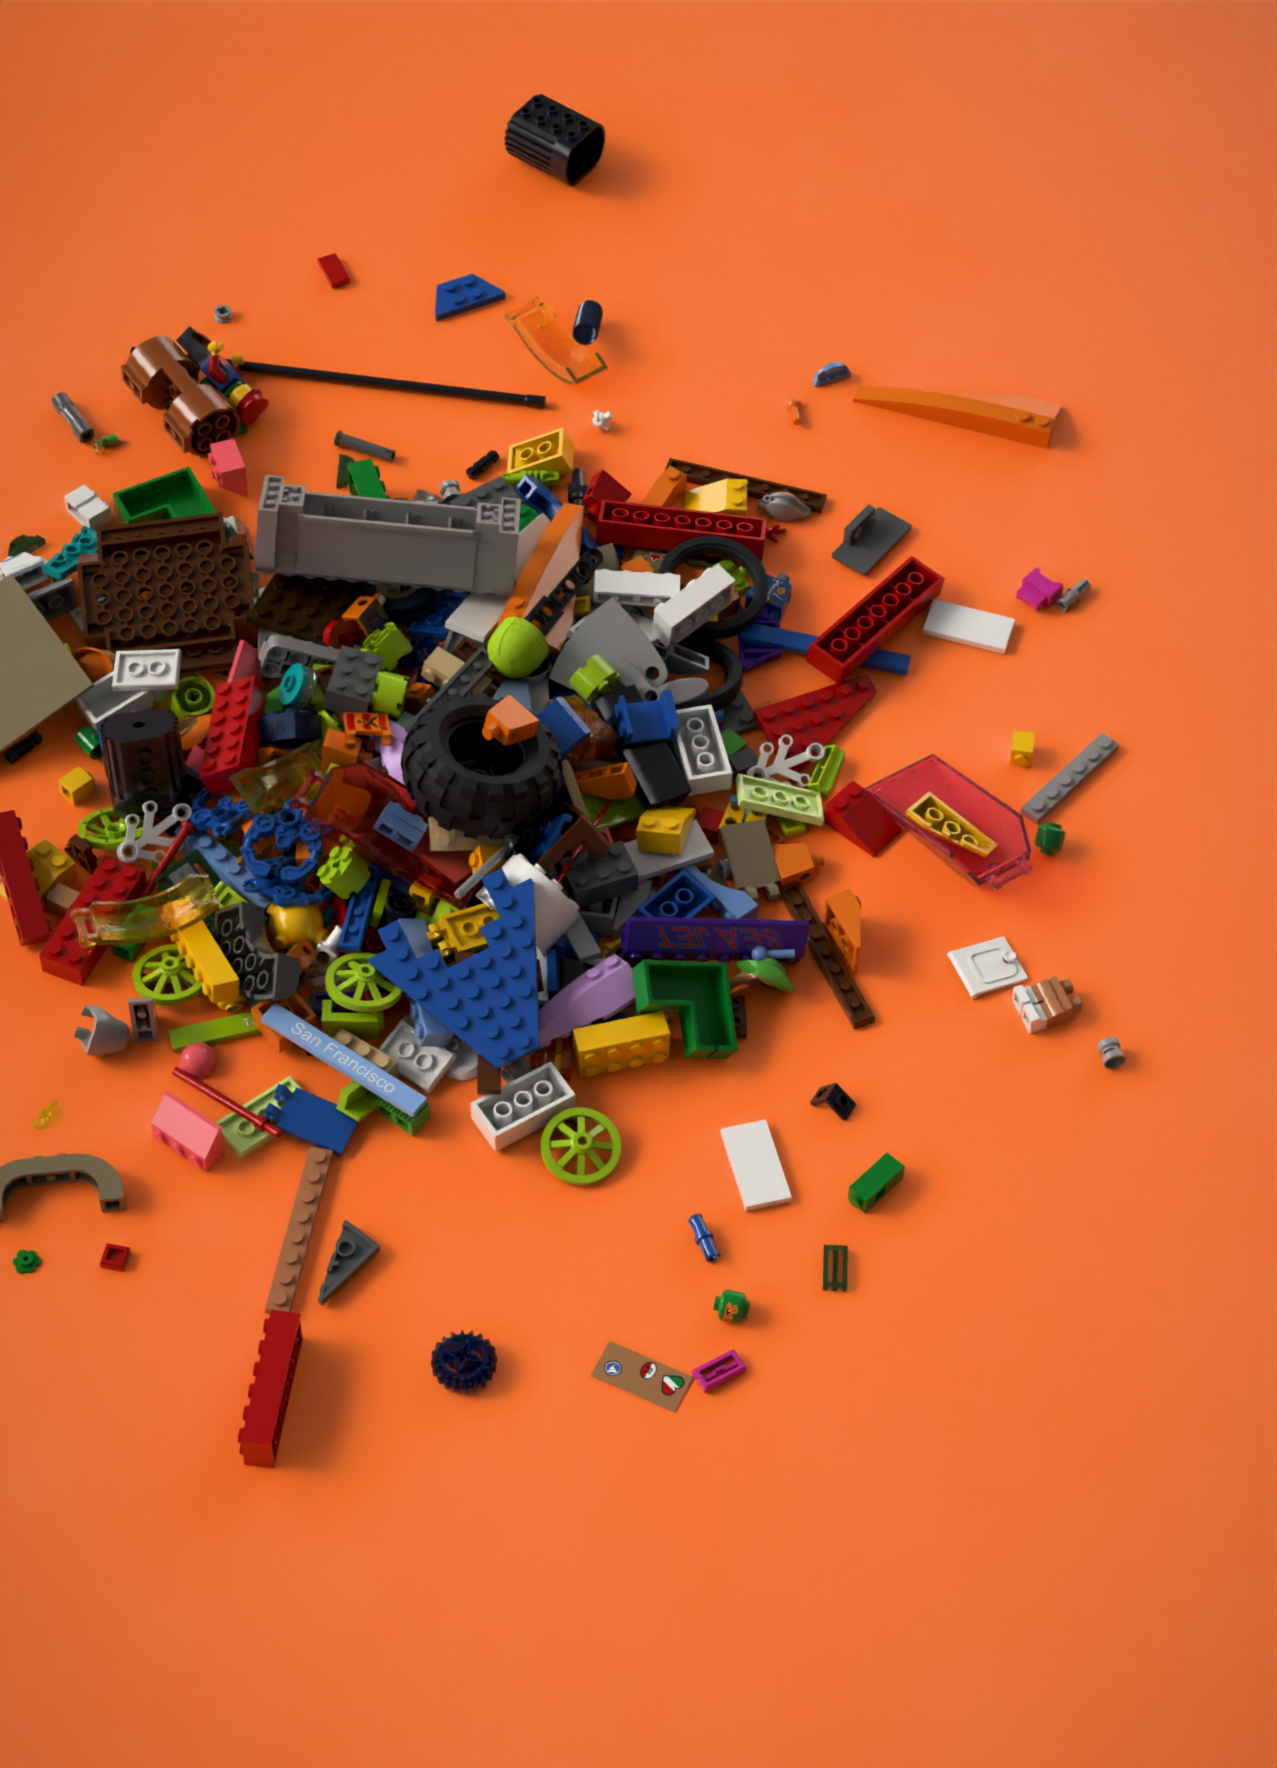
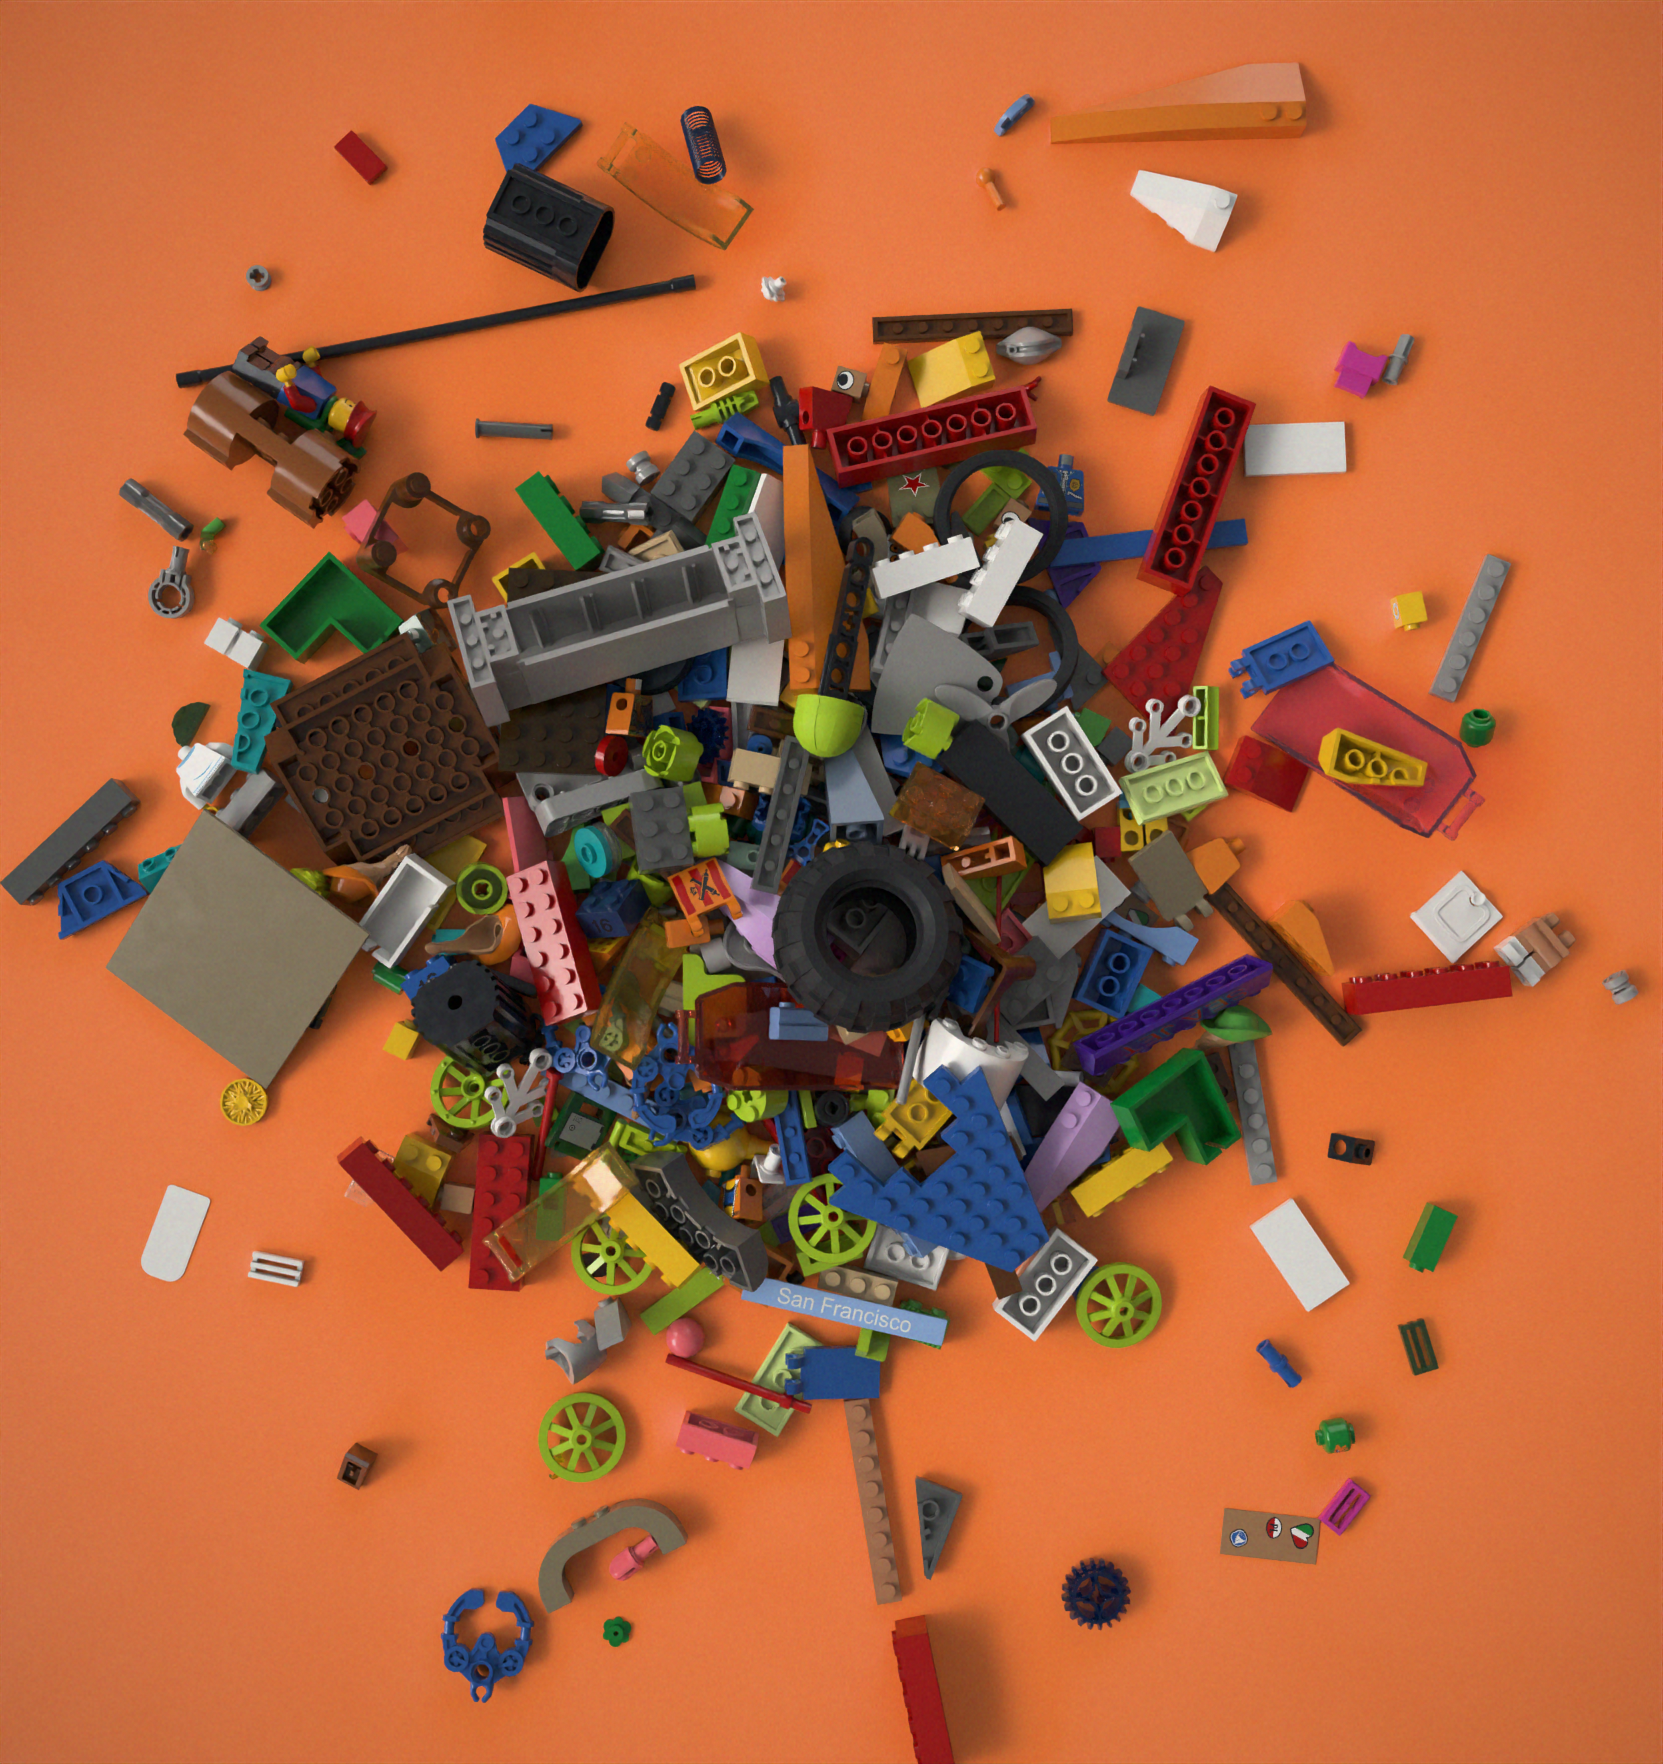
camera: 20 degrees left, 35 degrees up
(61, 457) = (180, 582): none -> light grey pin
(74, 1098) = (584, 1429): none -> lime wheel
(75, 1202) = (632, 1559): none -> coral arm
(115, 1257) = (703, 1597): red tile -> none
(146, 670) = (418, 884): white tile -> none
(268, 441) = (376, 556): none -> reddish brown piece
(342, 475) = (508, 473): clear green tile -> none
(450, 333) = (548, 227): none -> black piece
(509, 722) = (888, 897): orange torso -> none
(564, 724) = (928, 835): blue slope -> none
(636, 485) = (851, 383): none -> medium nougat brick
(648, 719) = (1009, 763): blue panel -> none
(757, 1047) = (1252, 1113): none -> light grey plate
(760, 953) = (1230, 1010): medium blue bar -> none
(903, 749) = (1282, 660): none -> blue tile
(938, 995) = (1427, 989): none -> red brick
(946, 462) = (1188, 206): none -> white wedge

